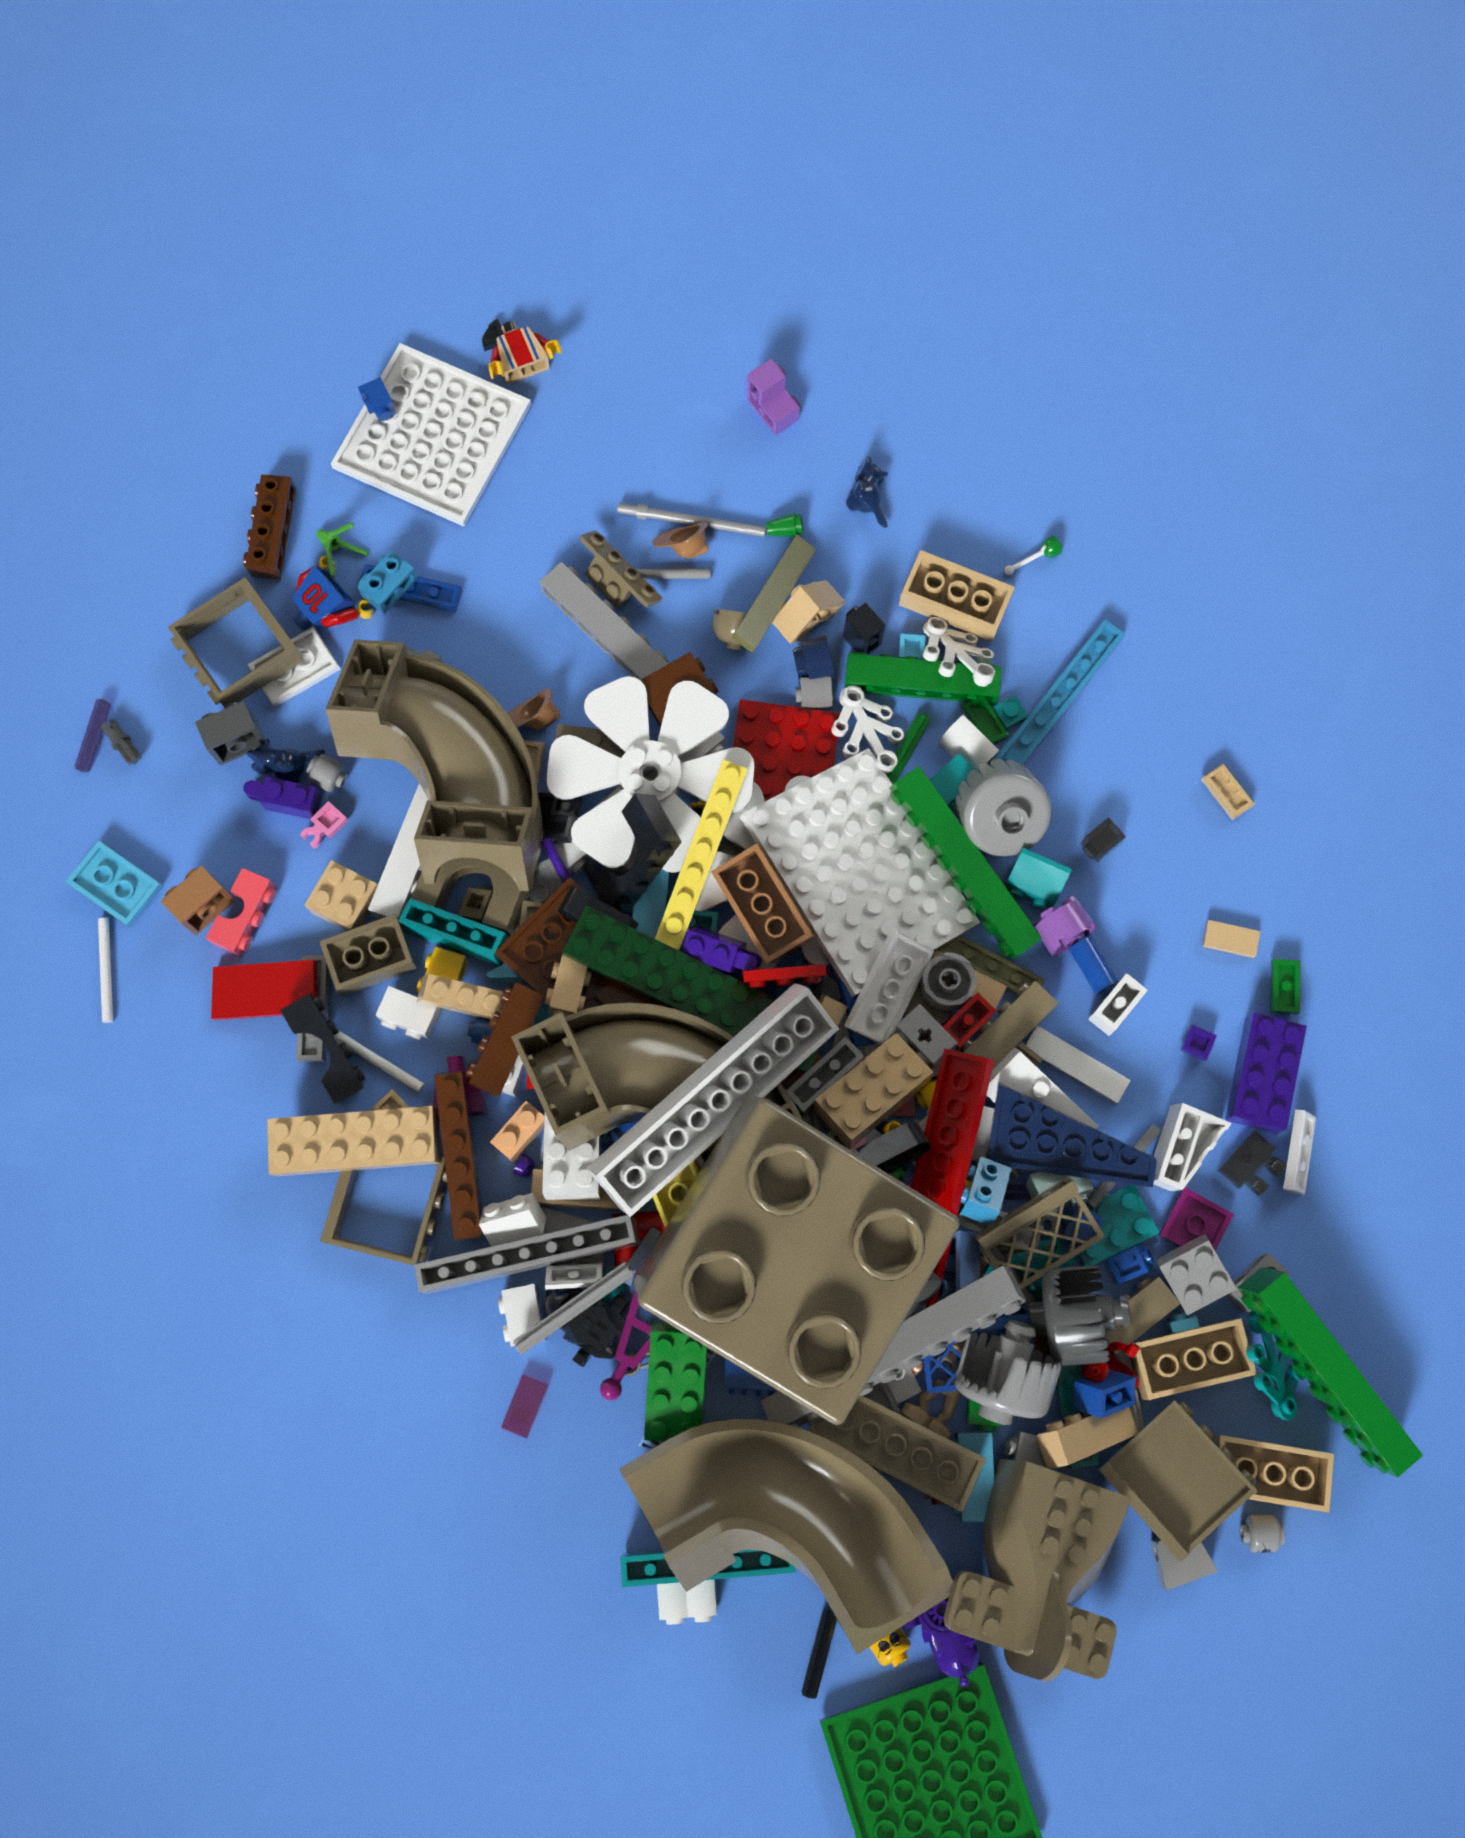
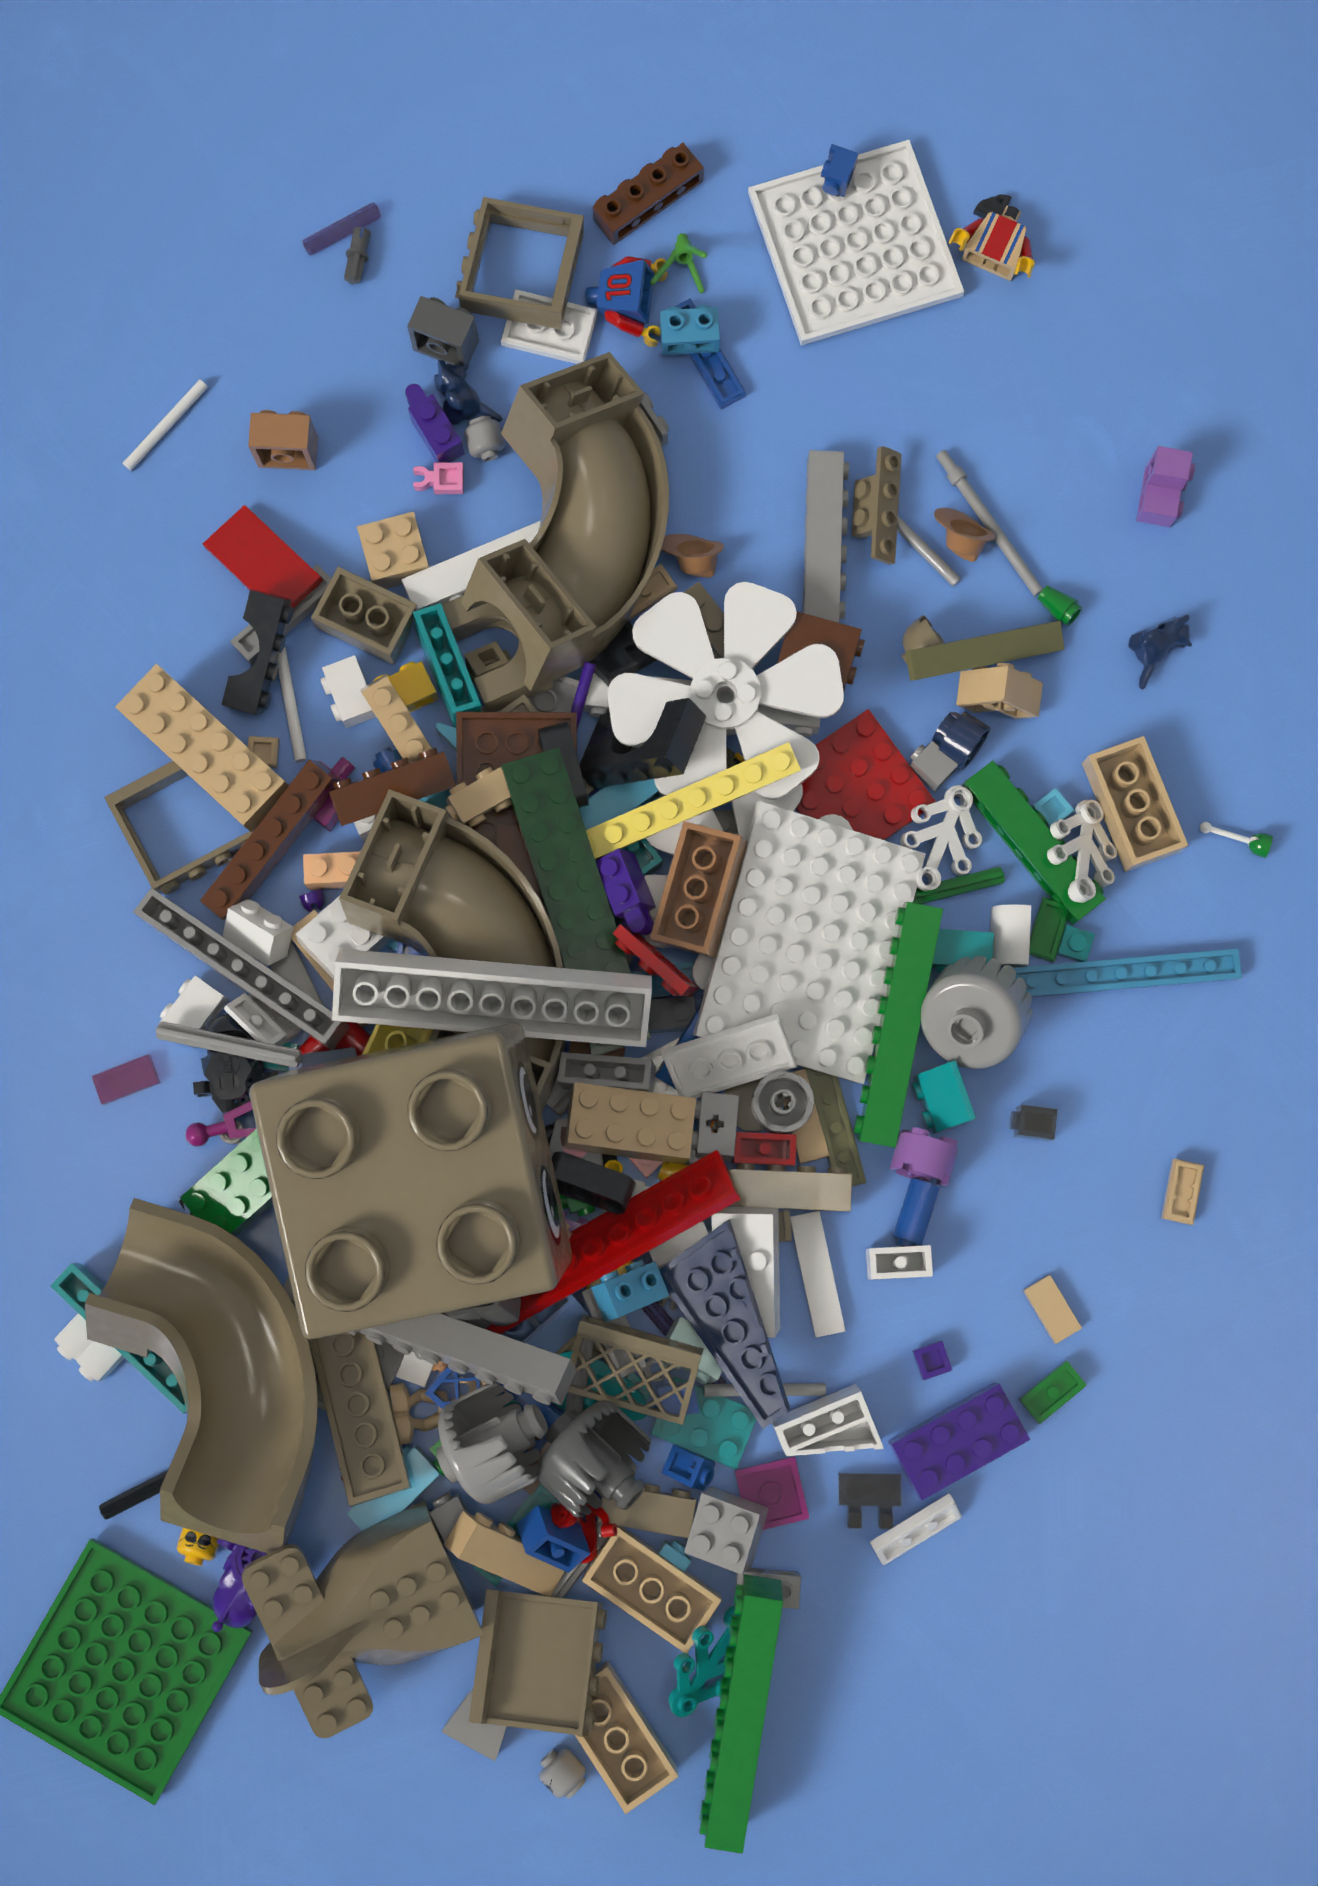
camera: 45 degrees right, 5 degrees up
(114, 883) = (238, 363): medium azure plate -> none
(236, 933) = (331, 482): coral arch -> none
(833, 1008) = (663, 1027): tan tile -> none
(863, 629) = (1026, 753): black brick -> none

